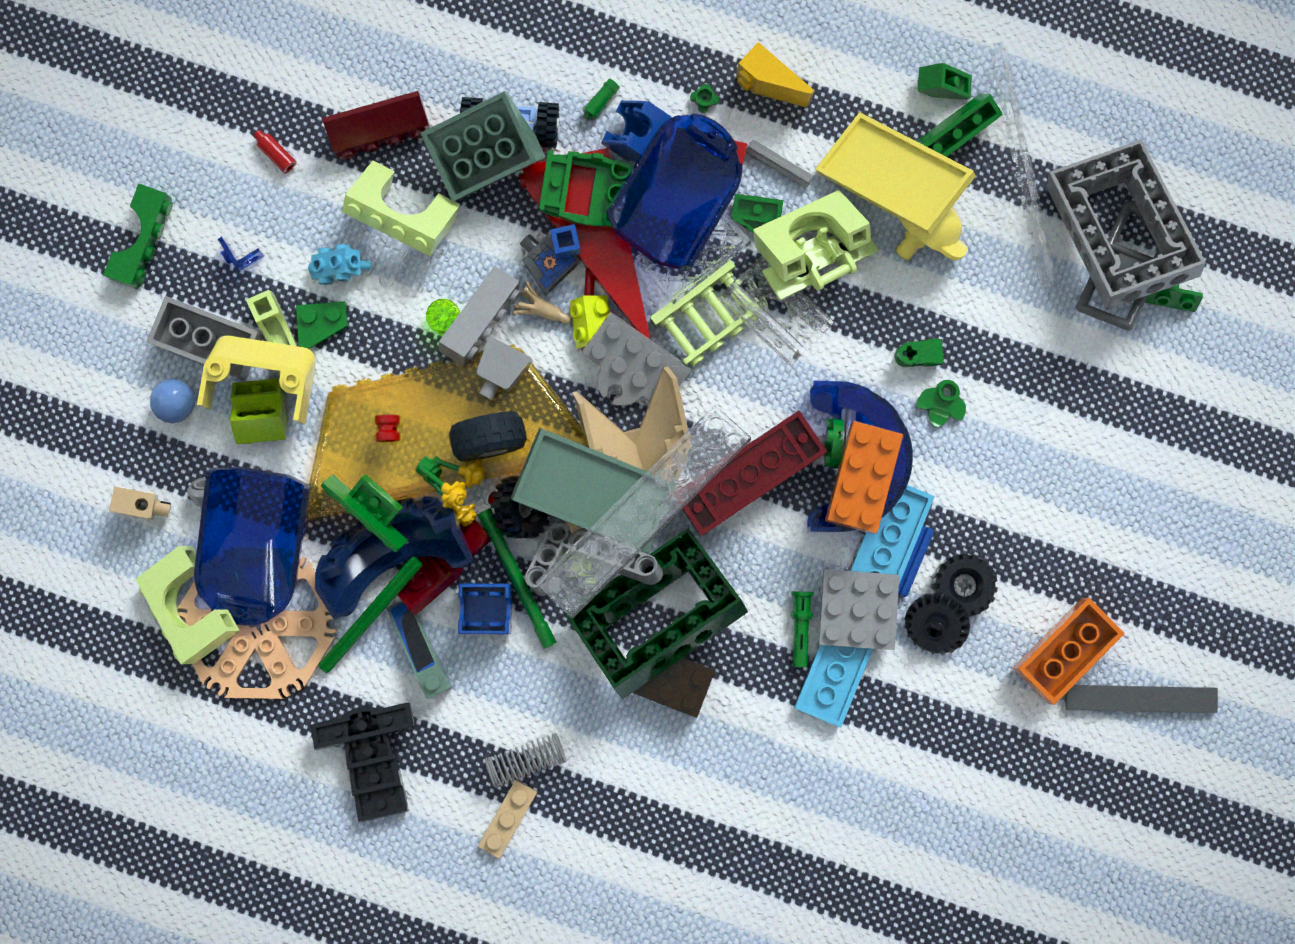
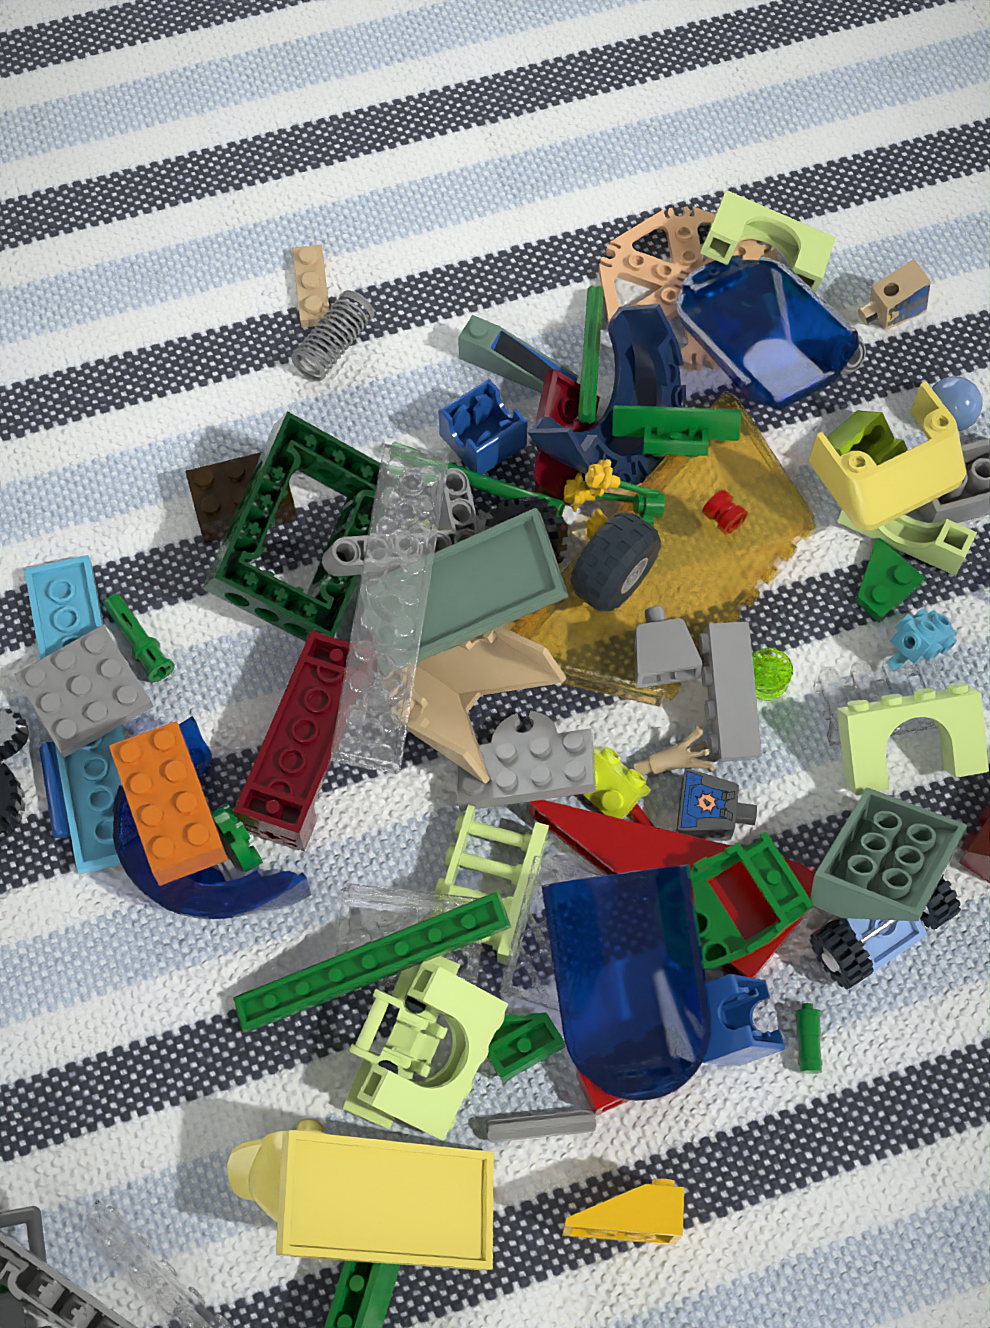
camera: 145 degrees right, 20 degrees down
(370, 756) = (486, 246): black slope -> none
(565, 241) = (707, 824): blue brick -> none
(704, 91) = (702, 1133): green plate -> none
(809, 307) = (372, 962): none -> green tile
(924, 353) = (201, 1023): green piece -> none
(940, 406) = (138, 982): green plate -> none

